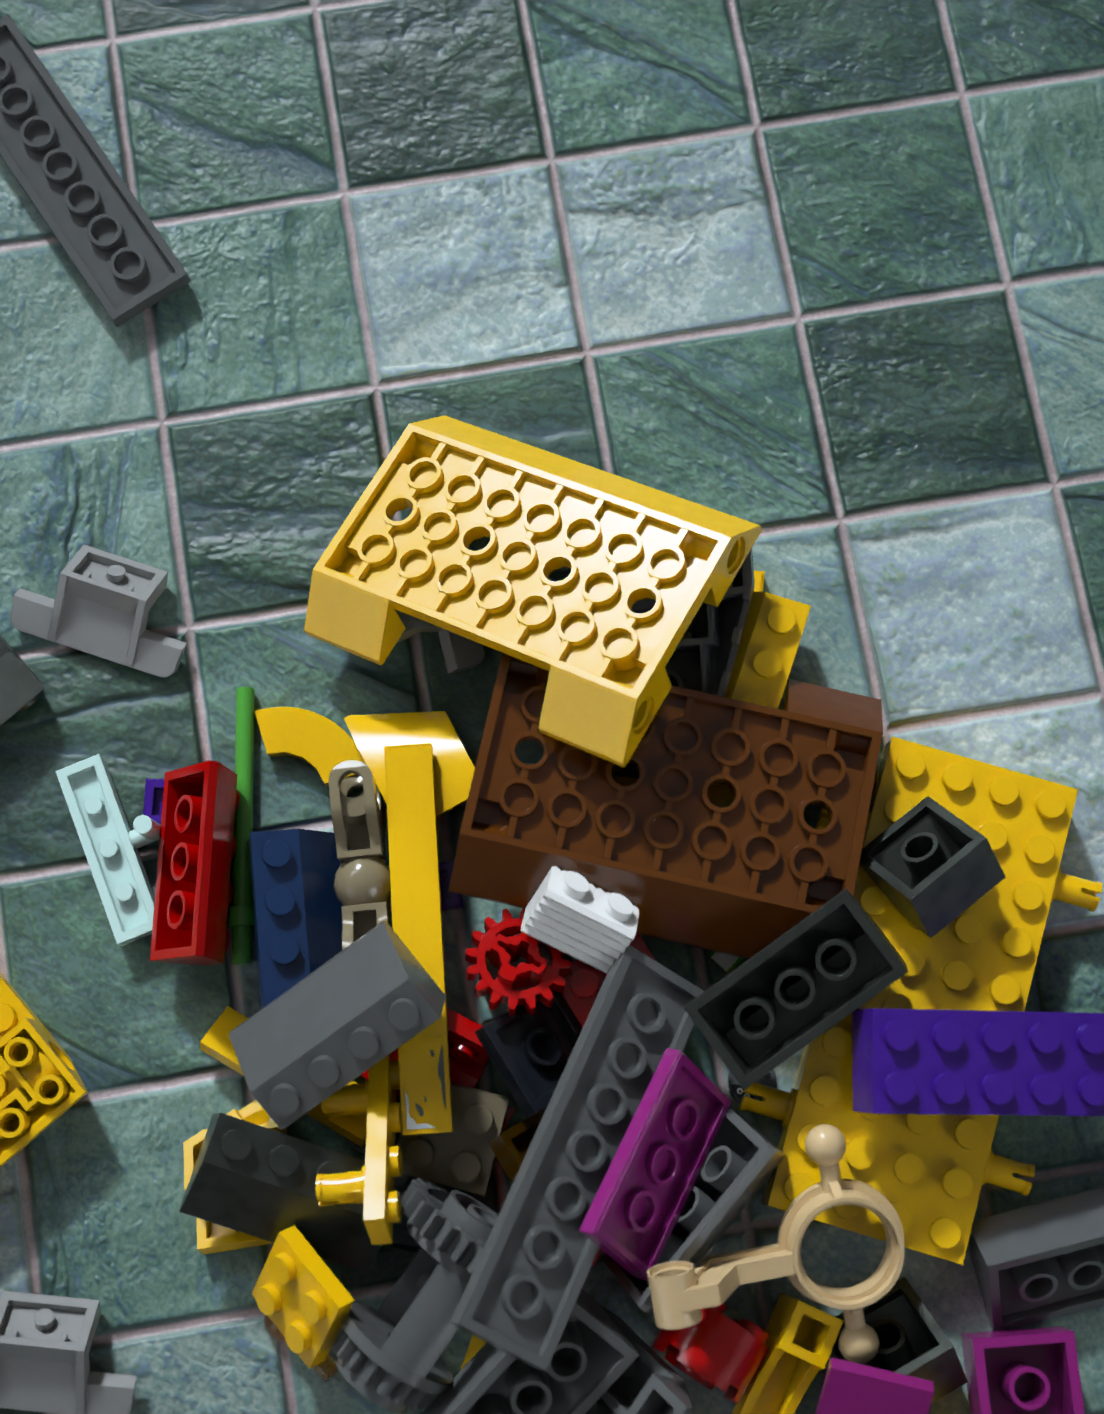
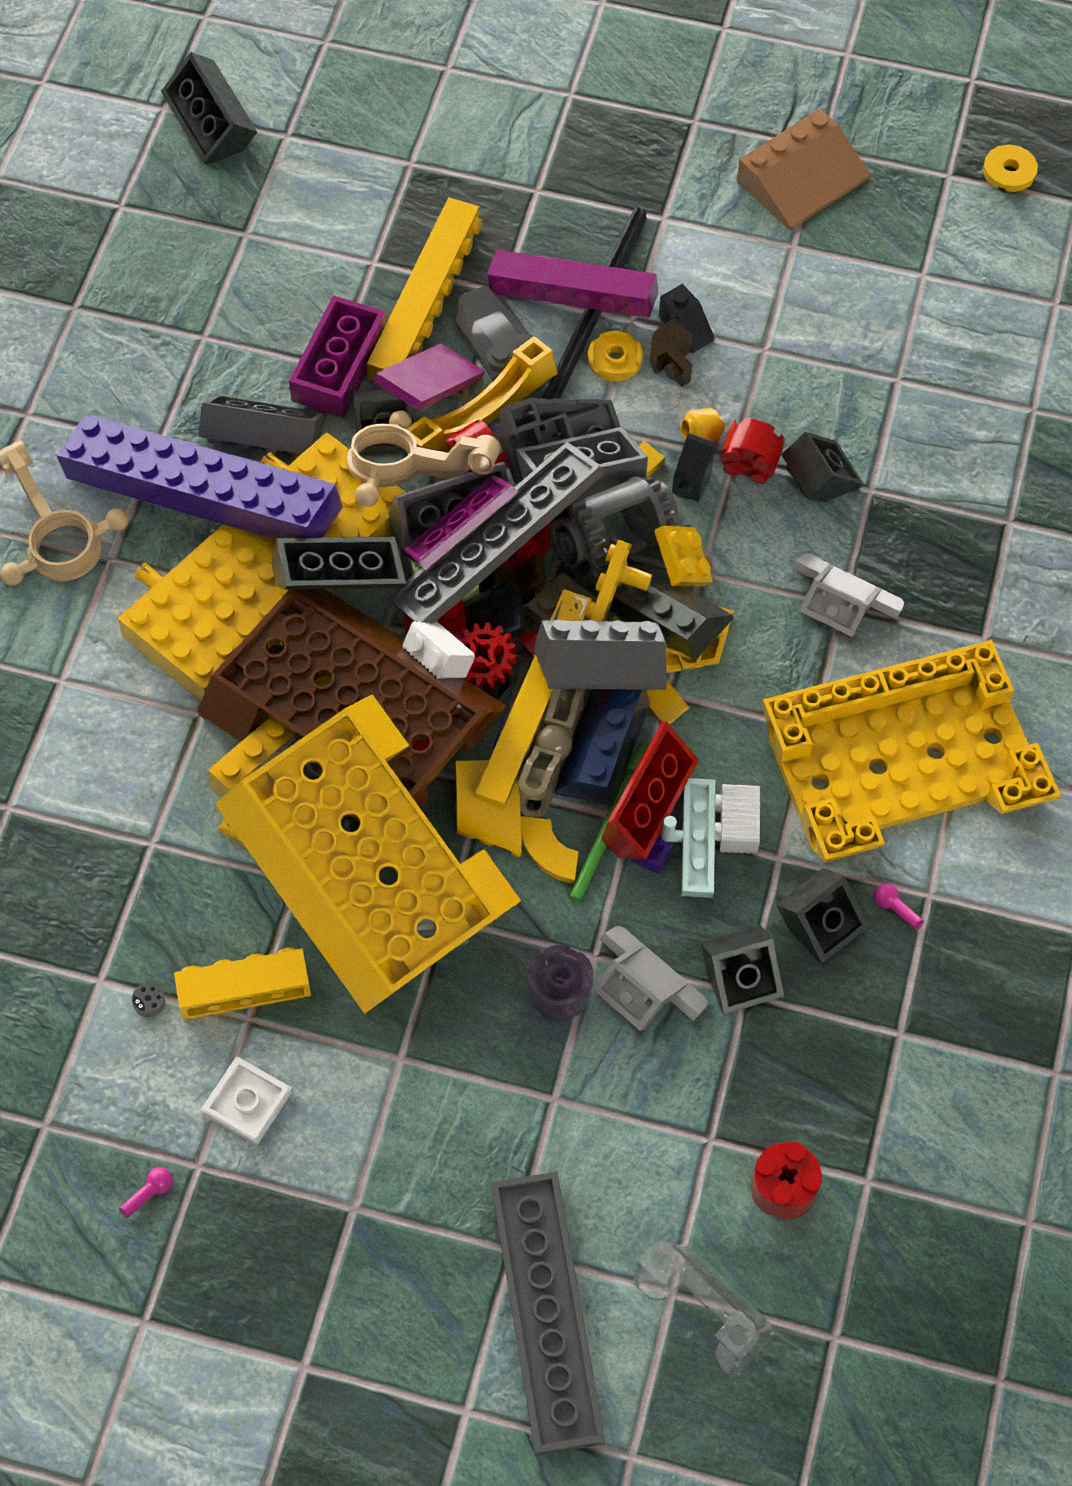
camera: 160 degrees left, 15 degrees down
(62, 901) = (738, 818): none -> white brick
(211, 524) = (576, 979): none -> clear purple brick
(533, 252) = (246, 1100): none -> white tile
(586, 120) = (157, 1182): none -> dark pink bar
(614, 377) = (242, 983): none -> yellow brick
(721, 314) = (148, 1000): none -> dark grey tile
(931, 866) = (227, 603): pearl dark grey slope -> none

